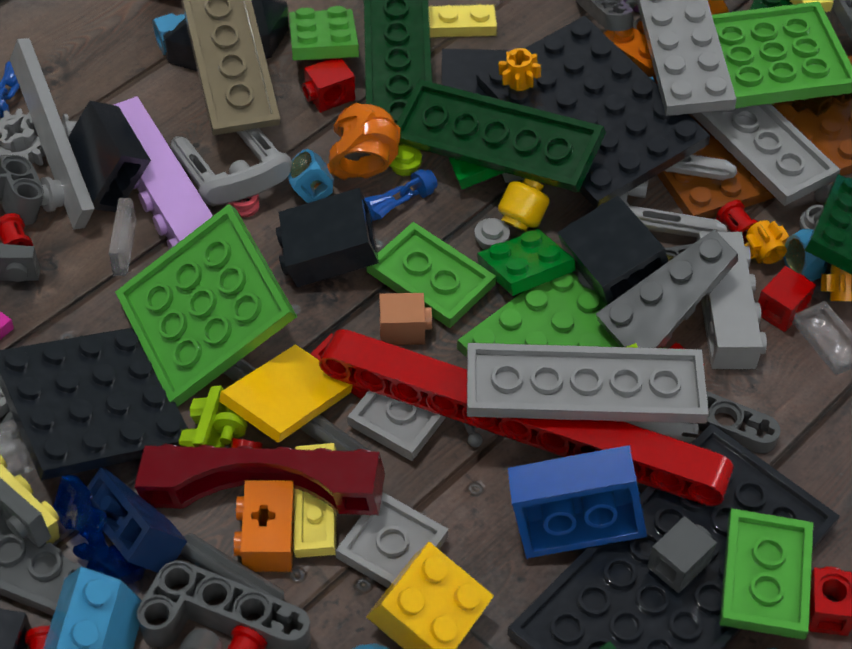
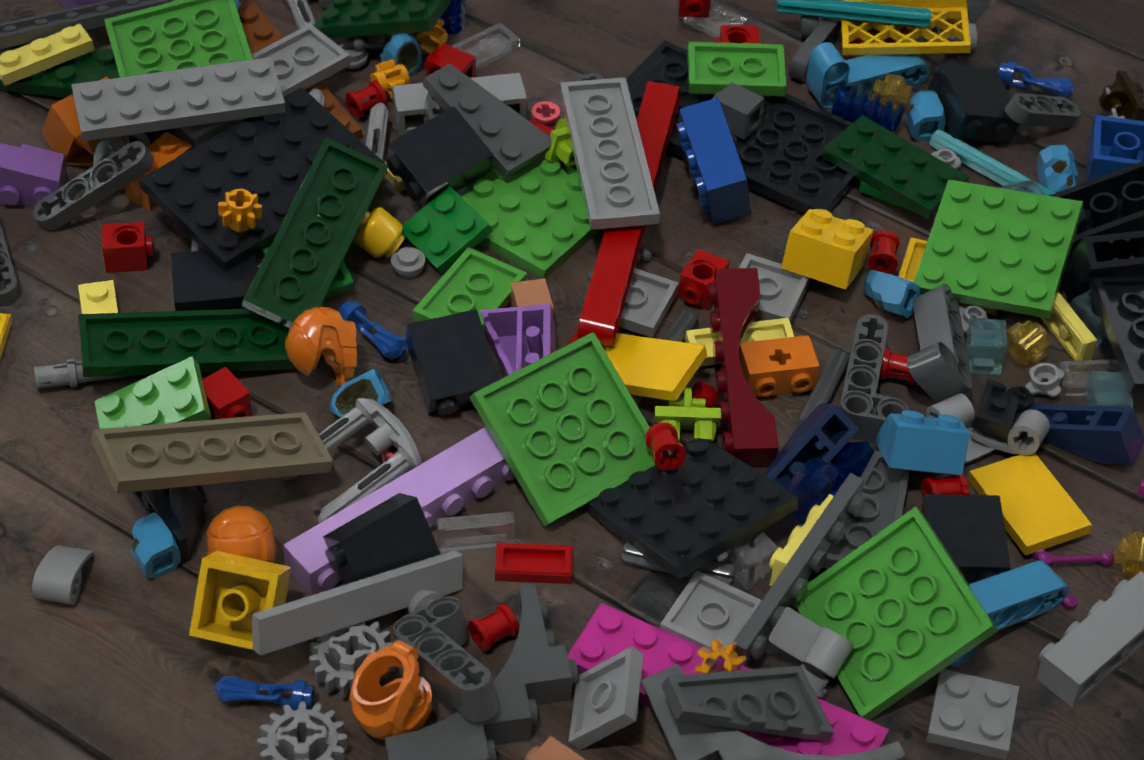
camera: 100 degrees left, 5 degrees down
(82, 283) = (534, 563): none -> red tile
(84, 63) = (233, 590): none -> yellow brick
(151, 65) = (242, 533): none -> orange helmet
(160, 381) = (667, 451): none -> red bush
(332, 296) = (520, 335): none -> medium lavender wedge
(419, 493) = (697, 275): none -> red brick
(533, 25) = (126, 247): none -> red brick
(721, 377) = (546, 109): none -> coral bush

